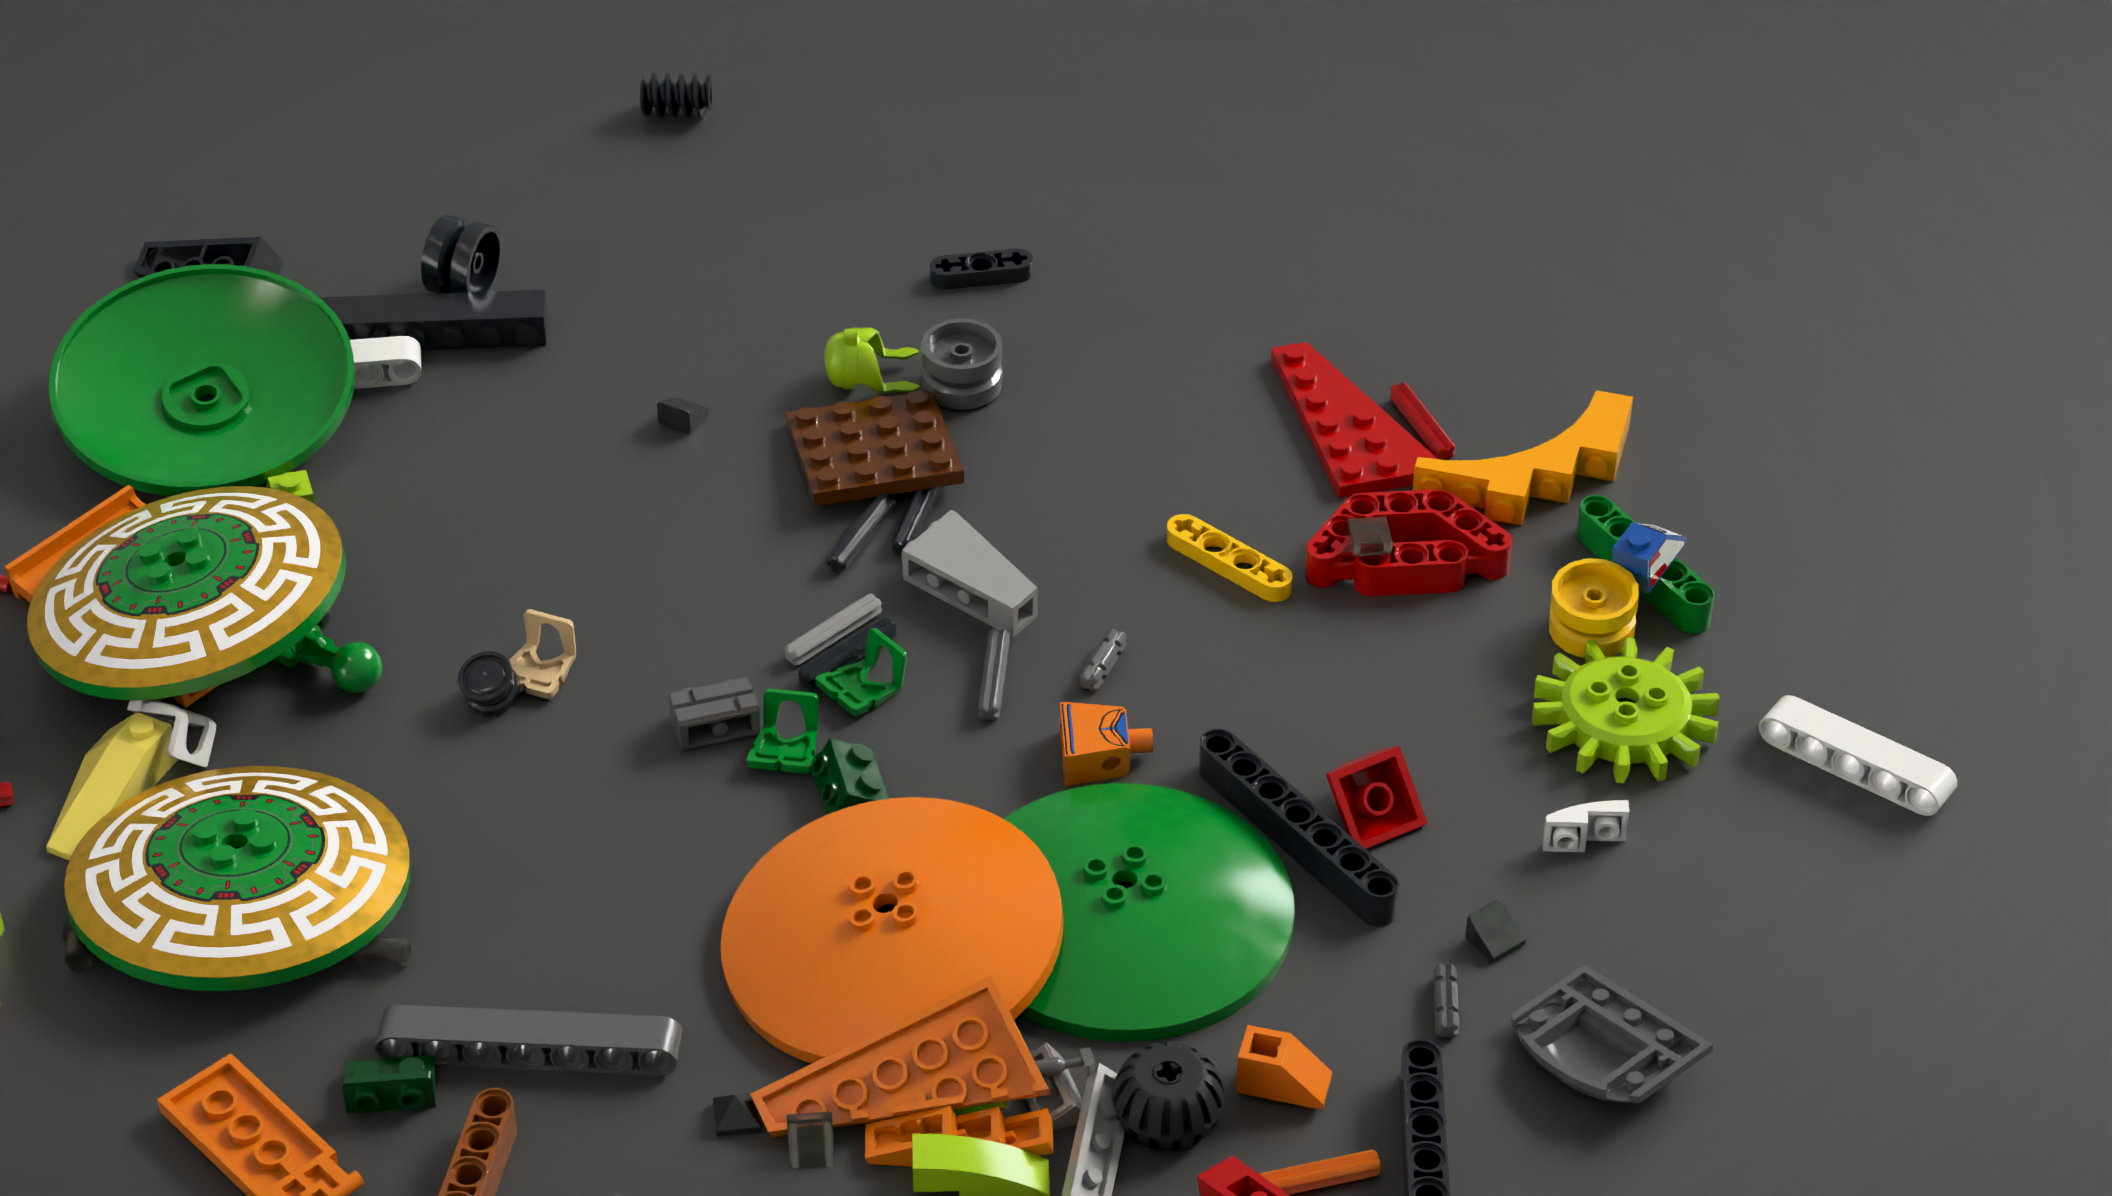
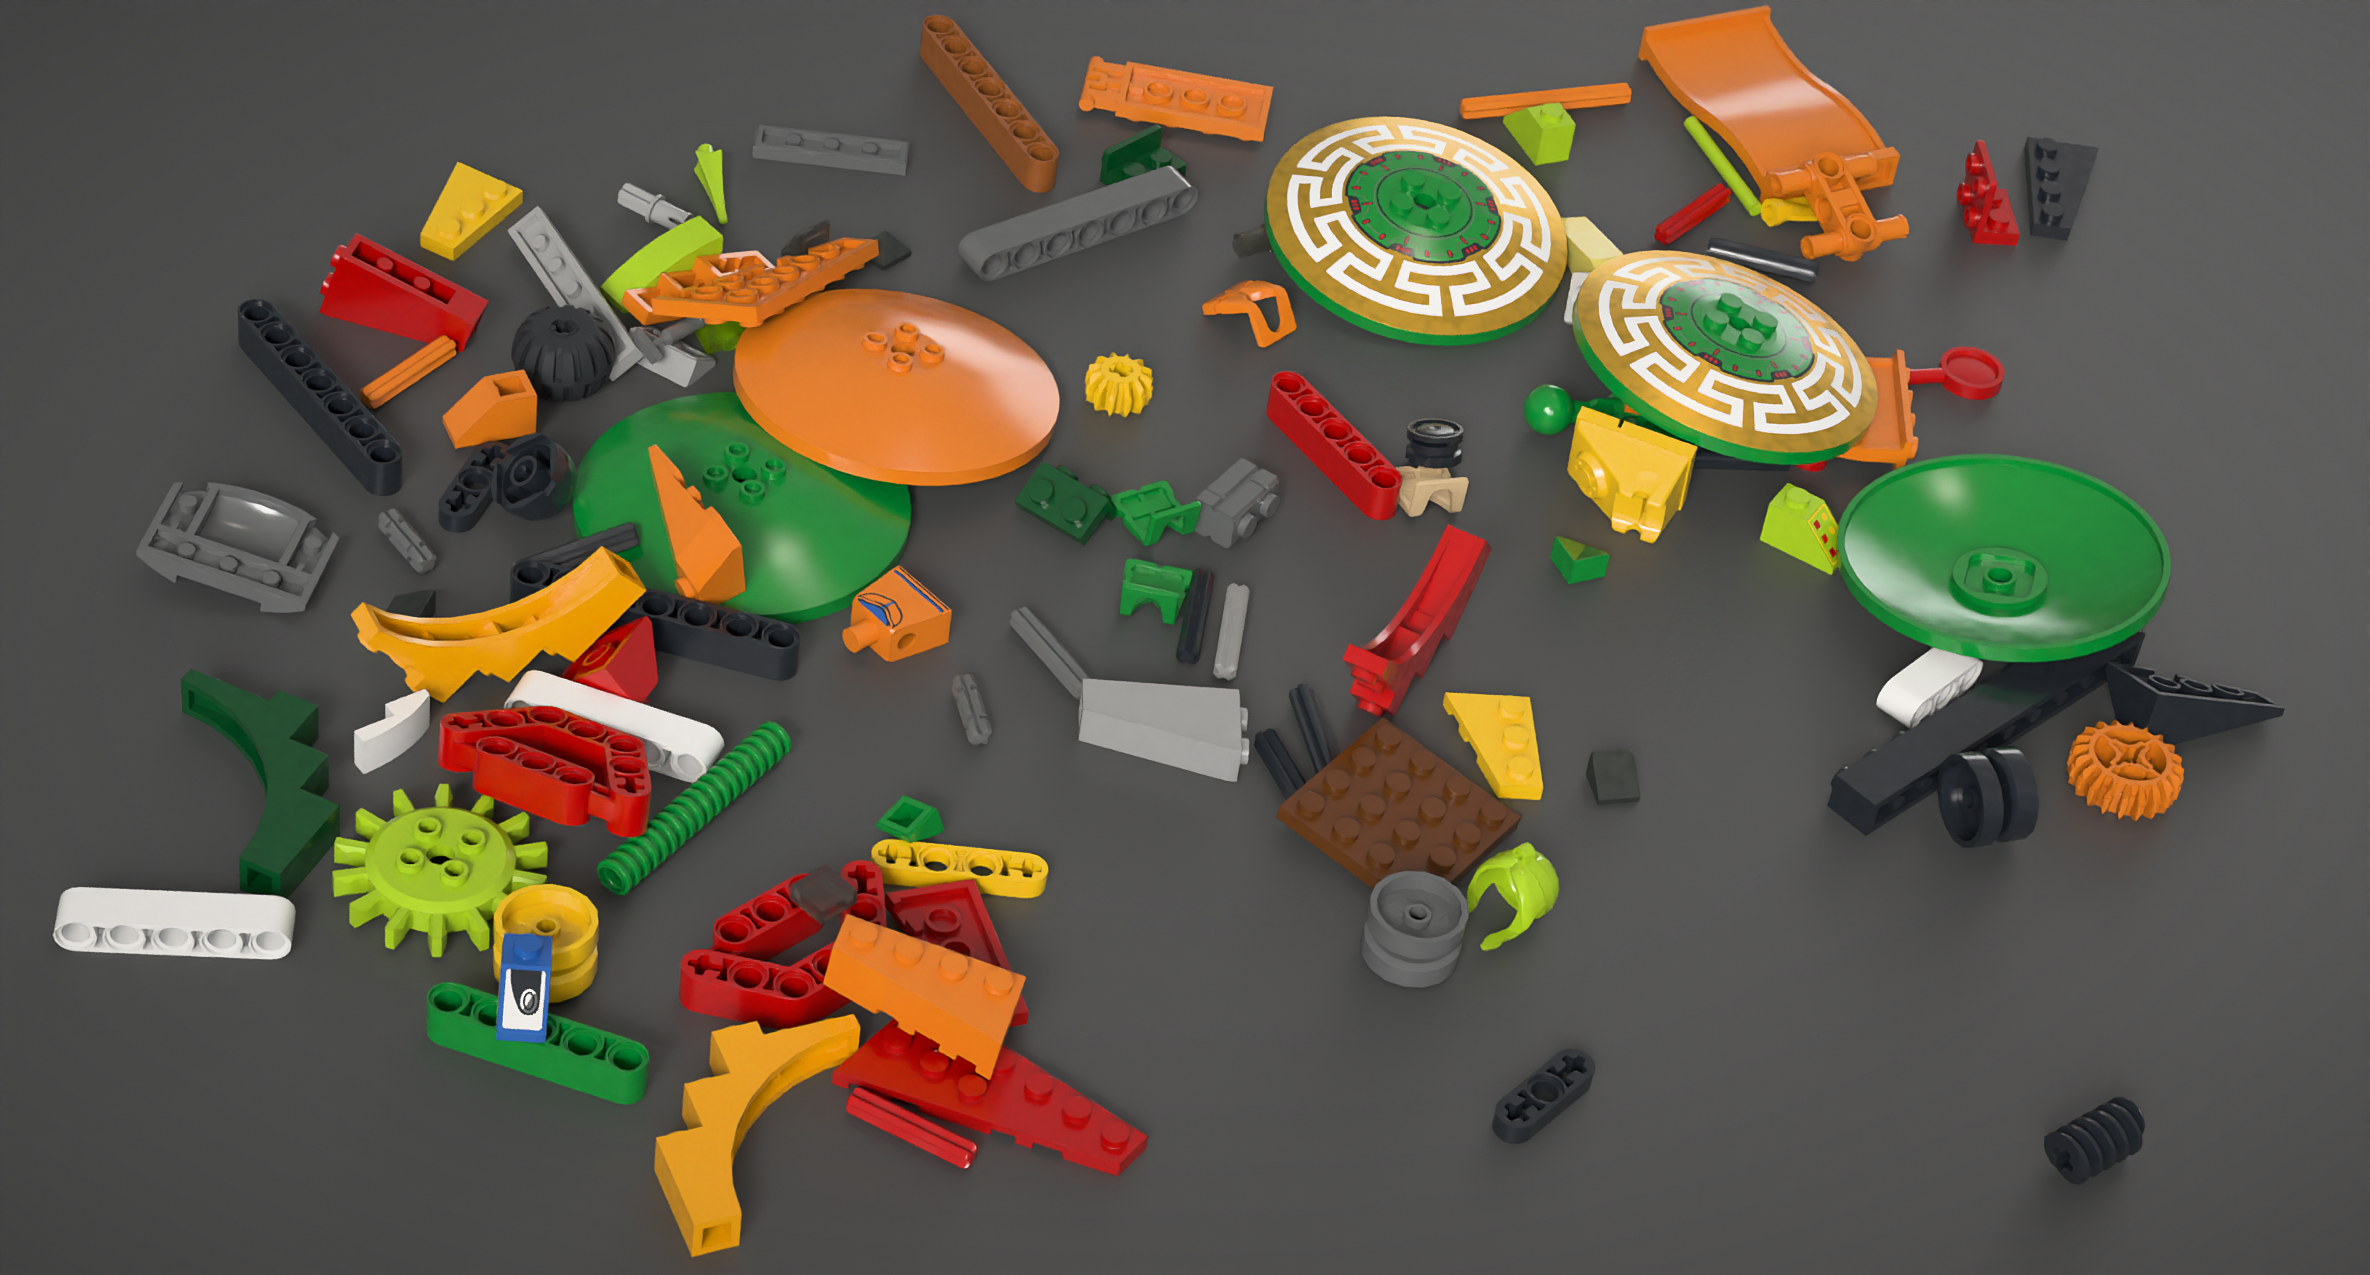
camera: 135 degrees right, 0 degrees up
(323, 255) = (2125, 770): none -> orange gear
(380, 572) = (1630, 472): none -> yellow piece
(477, 898) = (1240, 300): none -> orange piece
(492, 558) = (1578, 561): none -> green slope
(570, 726) = (1334, 445): none -> red beam
(687, 858) = (1118, 384): none -> yellow gear
(725, 472) = (1503, 739): none -> yellow wing
(726, 533) = (1410, 640): none -> red arch
(1229, 820) = (700, 542): none -> orange wedge
(1238, 591) = (911, 820): none -> green slope
(1282, 501) = (954, 919): none -> red wing
(1303, 971) = (534, 478): none -> black cylinder
(1316, 905) = (576, 552): none -> black axle
(1355, 1013) = (476, 502): none -> black beam
(1357, 438) = (926, 989): none -> orange wedge
(1374, 725) = (671, 742): none -> white beam
(1391, 671) = (694, 808): none -> green piece
(1449, 835) = (502, 641): none -> light orange arch
(1537, 762) = (551, 765): none -> red piece
(1711, 792) = (278, 743): none -> dark green arch

